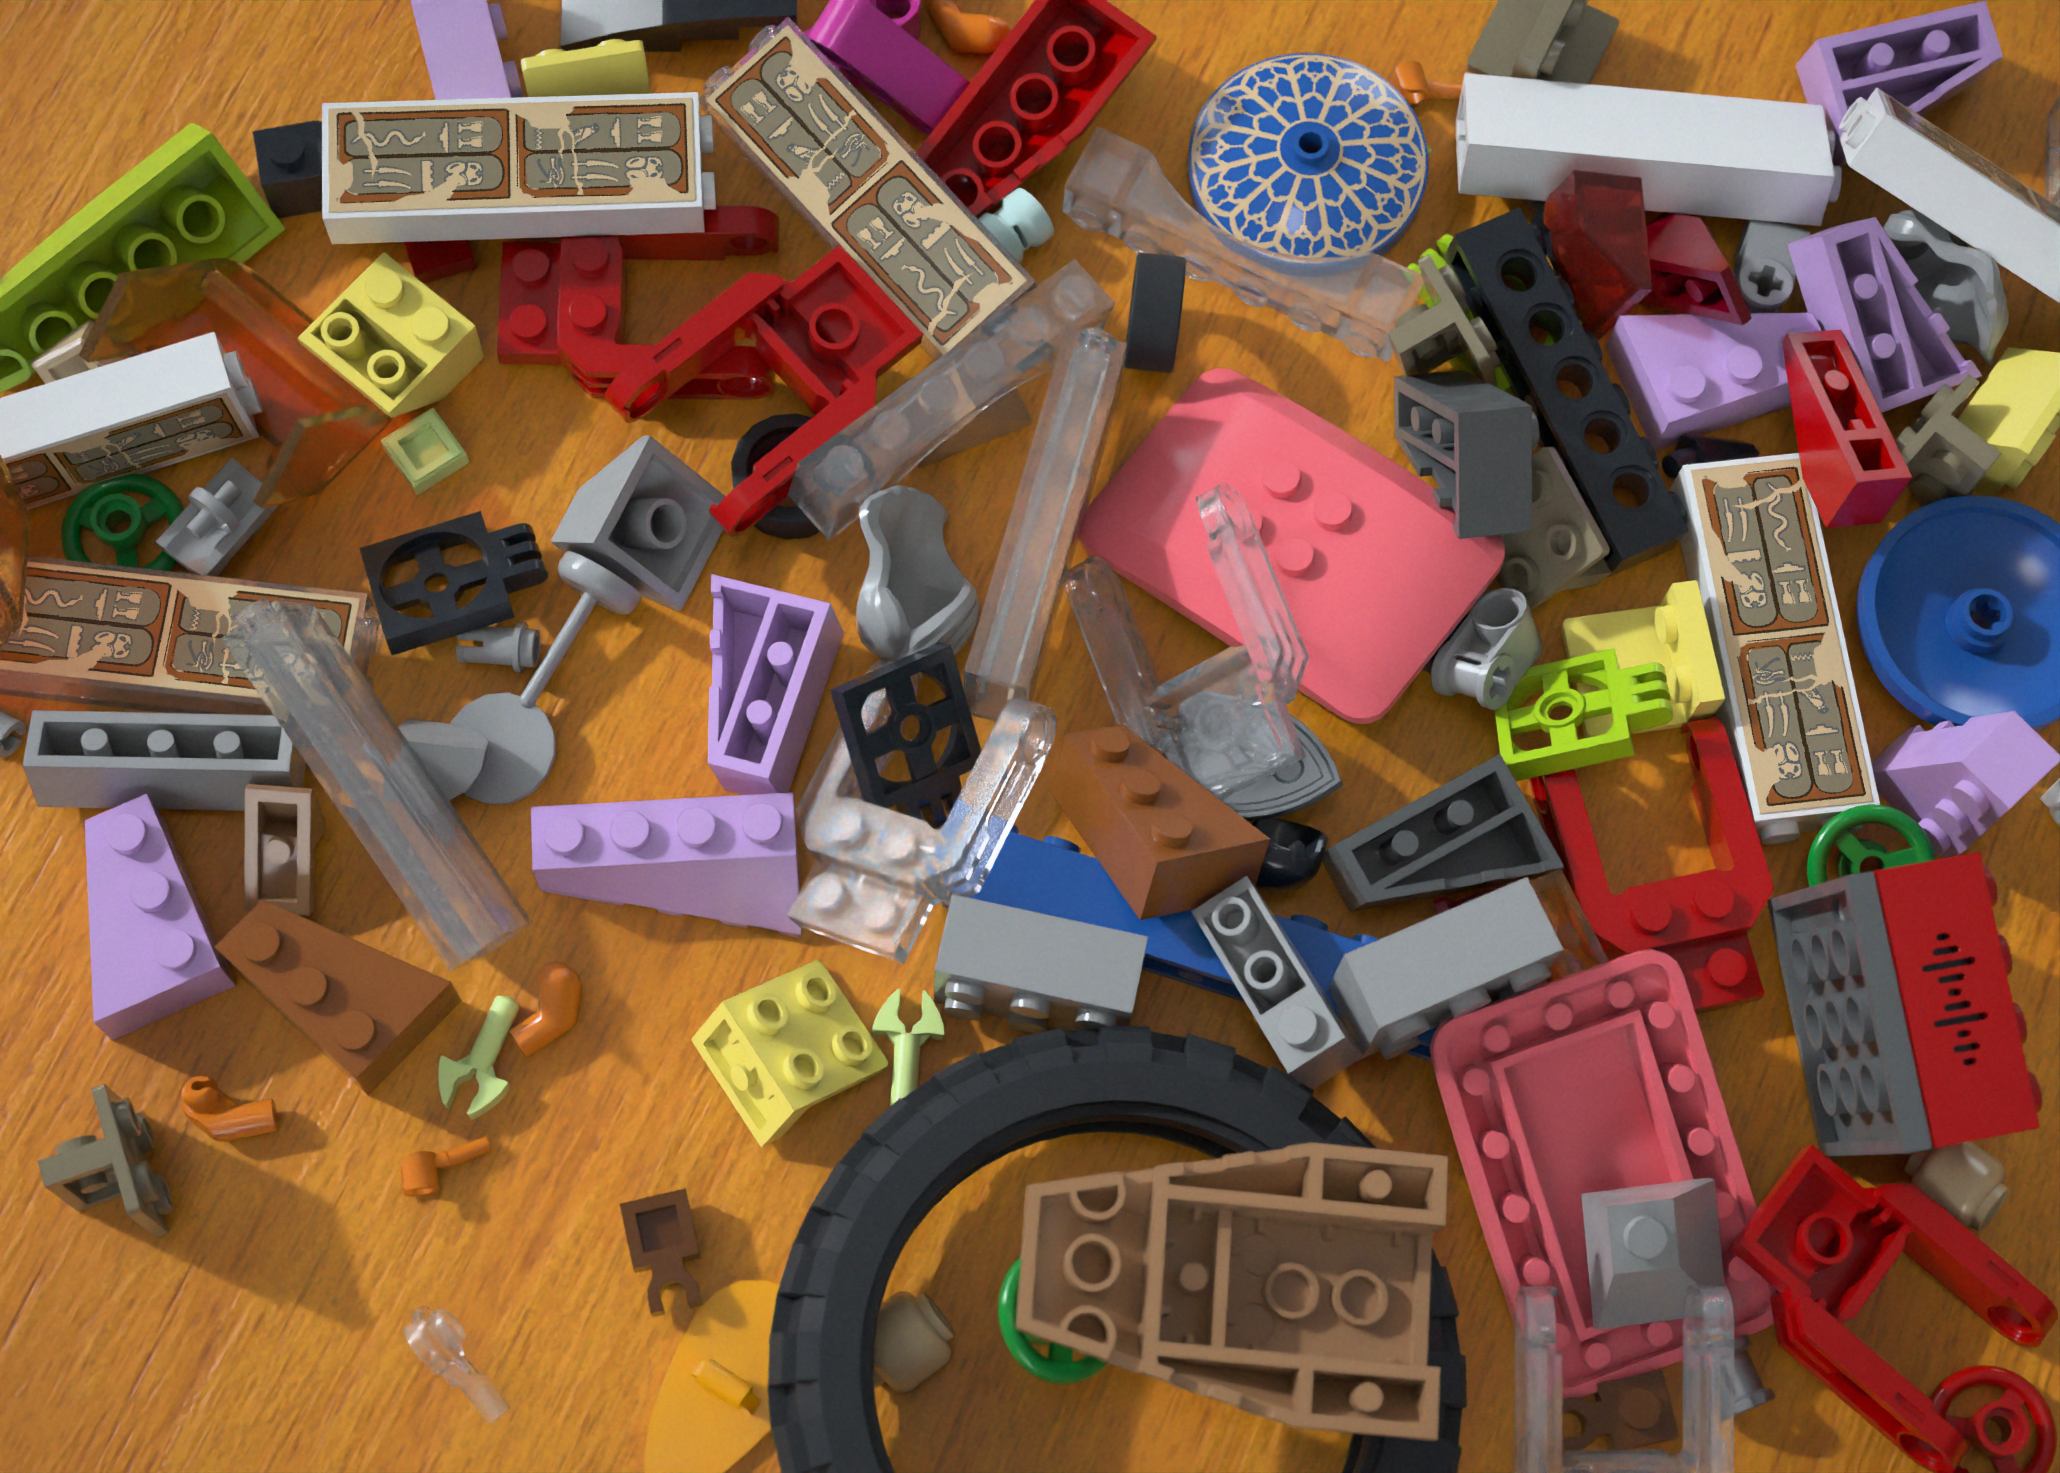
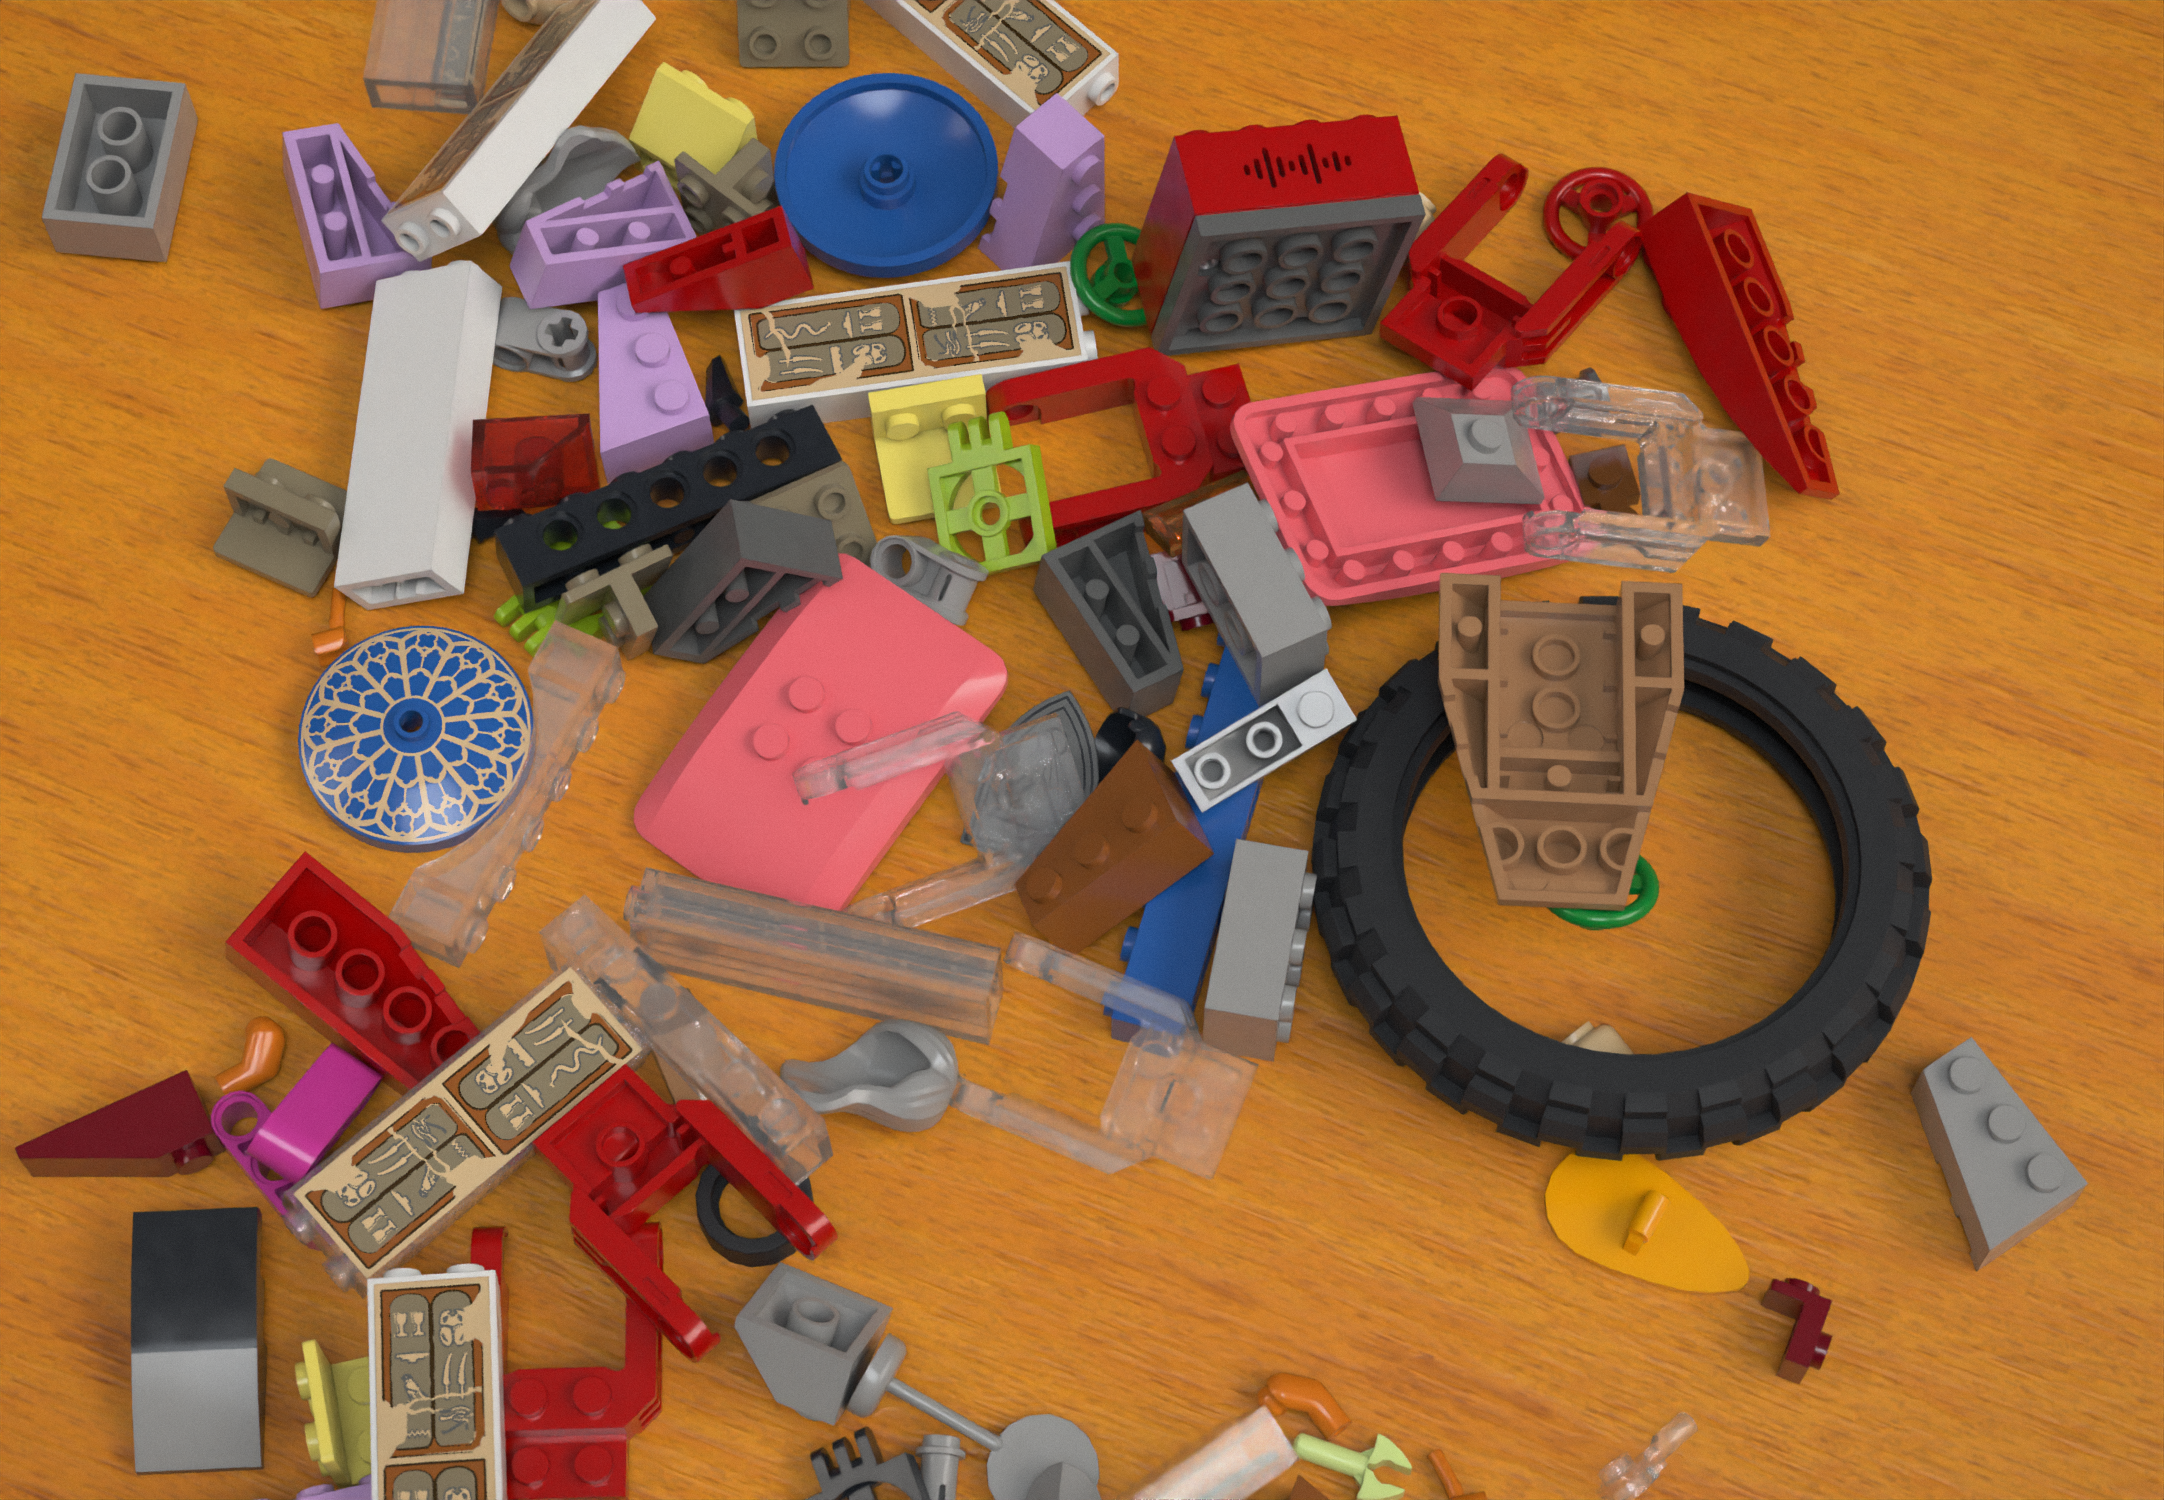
camera: 85 degrees left, 5 degrees down
(661, 1240) = (1519, 1285): reddish brown plate -> none
(680, 856) = (1154, 1268): lavender wedge -> none
(766, 682) = (978, 1210): lavender wedge -> none
(787, 1048) = (1335, 1180): light yellow bracket -> none
(907, 1045) = (1318, 1079): yellowish green bar -> none
(930, 780) = (1043, 1045): black piece -> none
(1019, 223) = (483, 995): light aqua wheel -> none
(1155, 312) = (588, 860): black tyre -> none
(1691, 271) = (563, 380): dark red slope -> none

